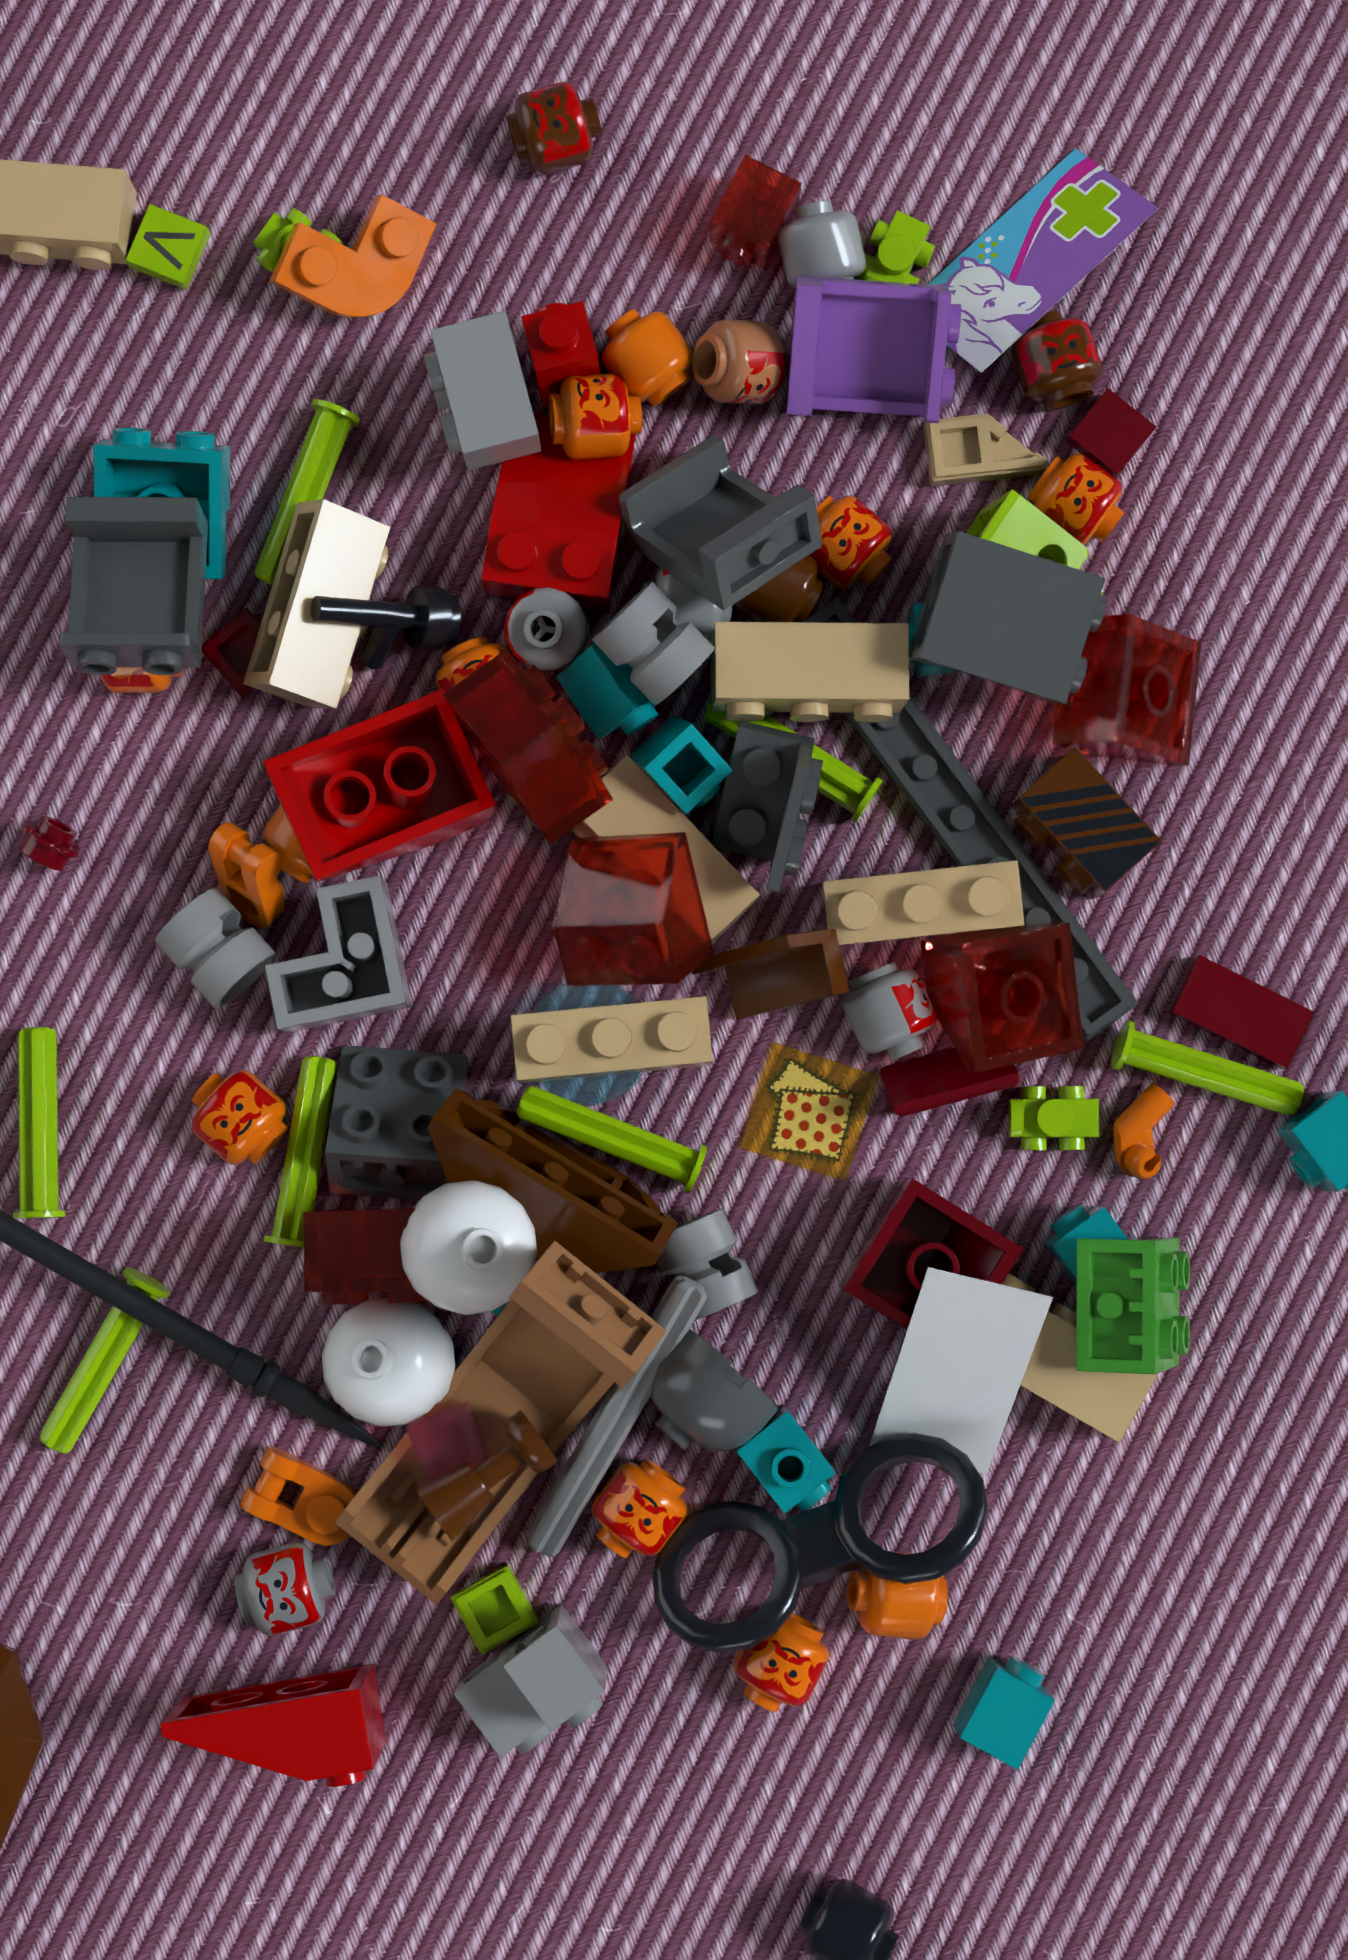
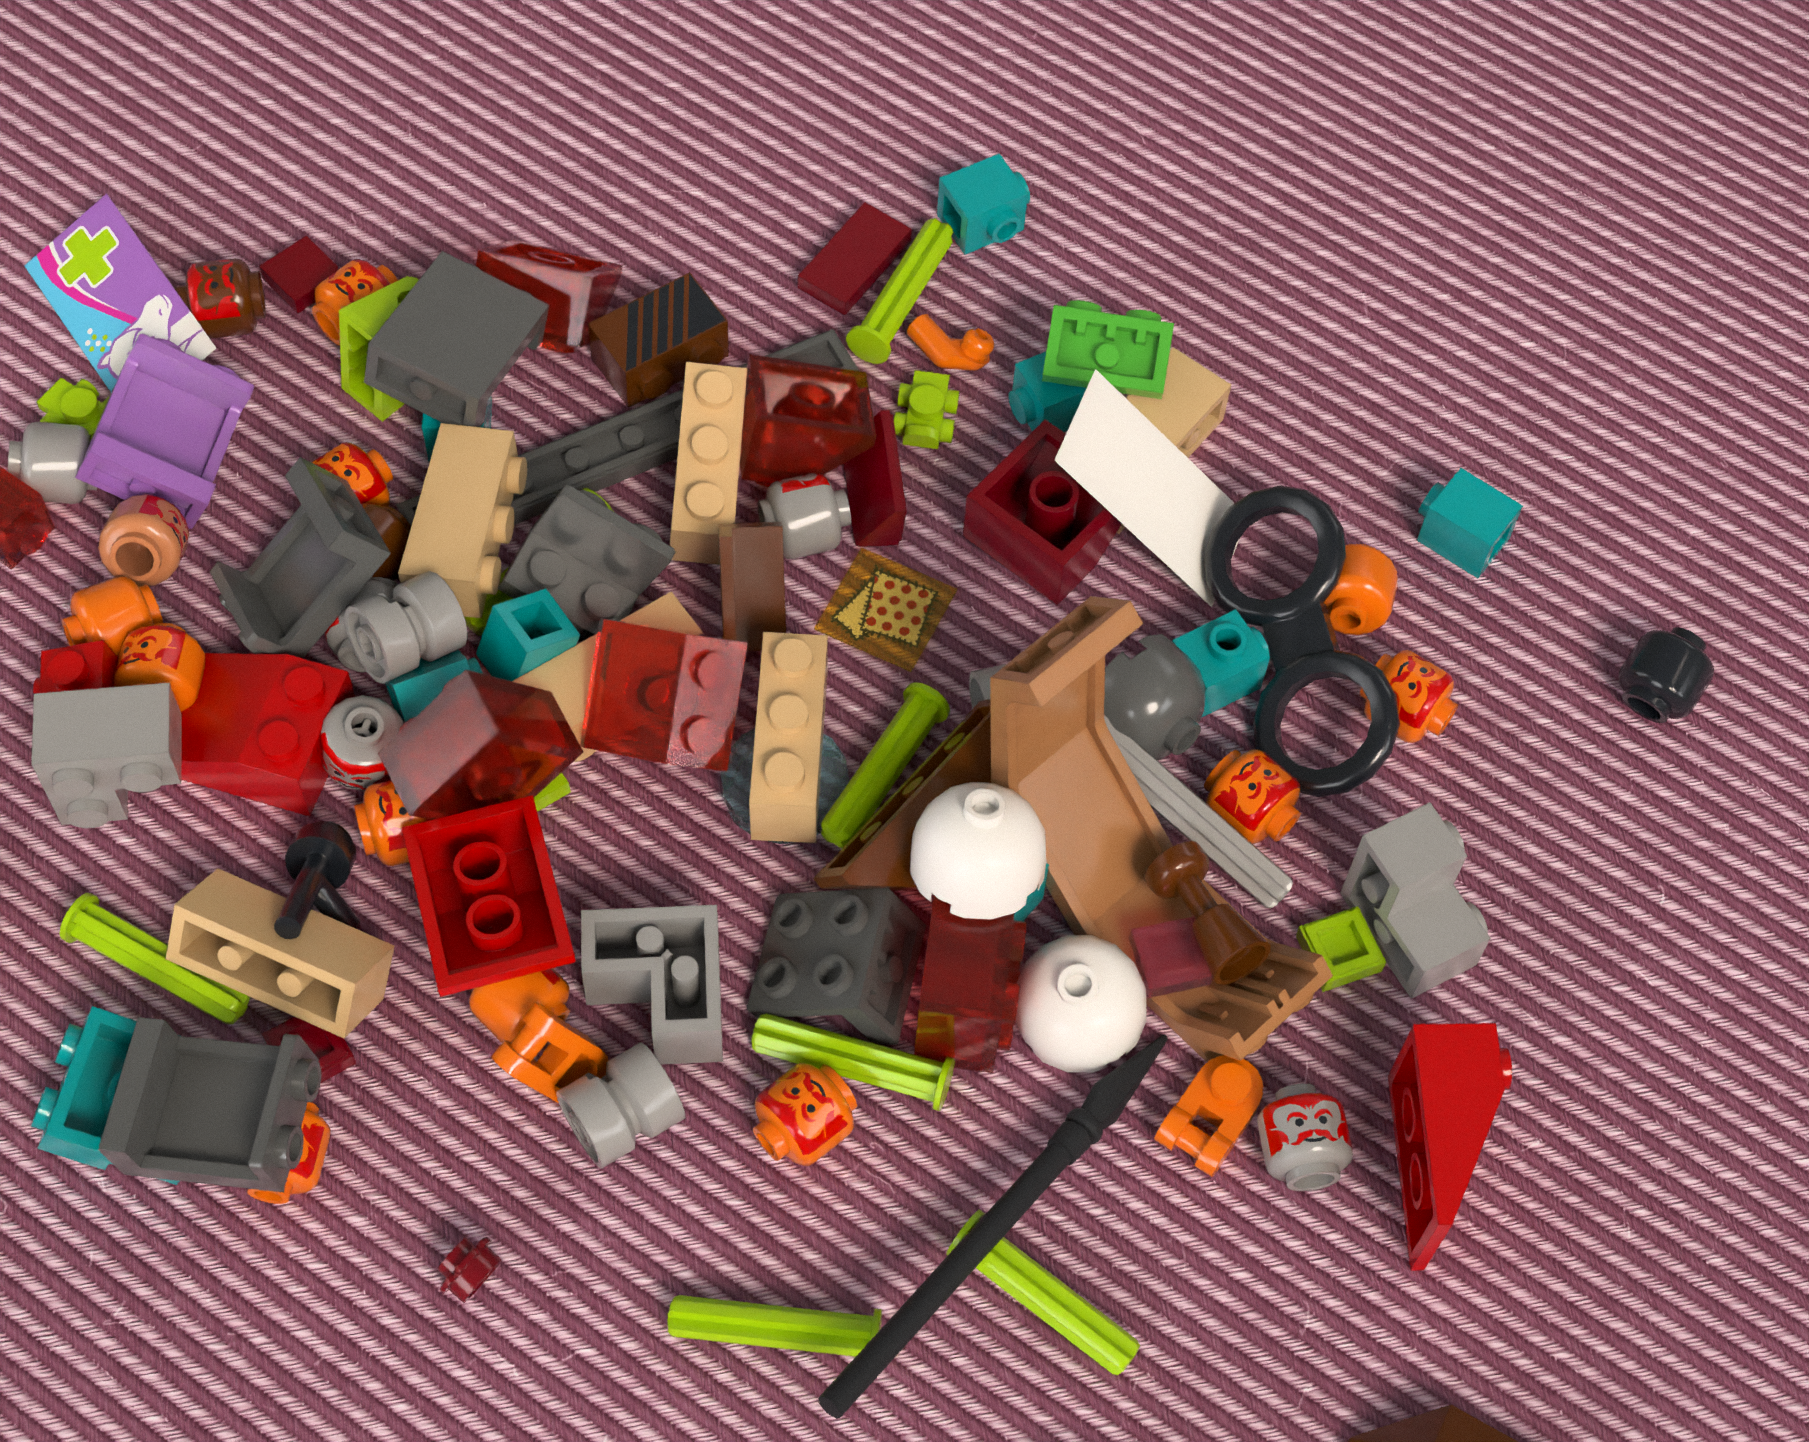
camera: 80 degrees left, 25 degrees down
(976, 451) = (286, 381): tan tile -> none

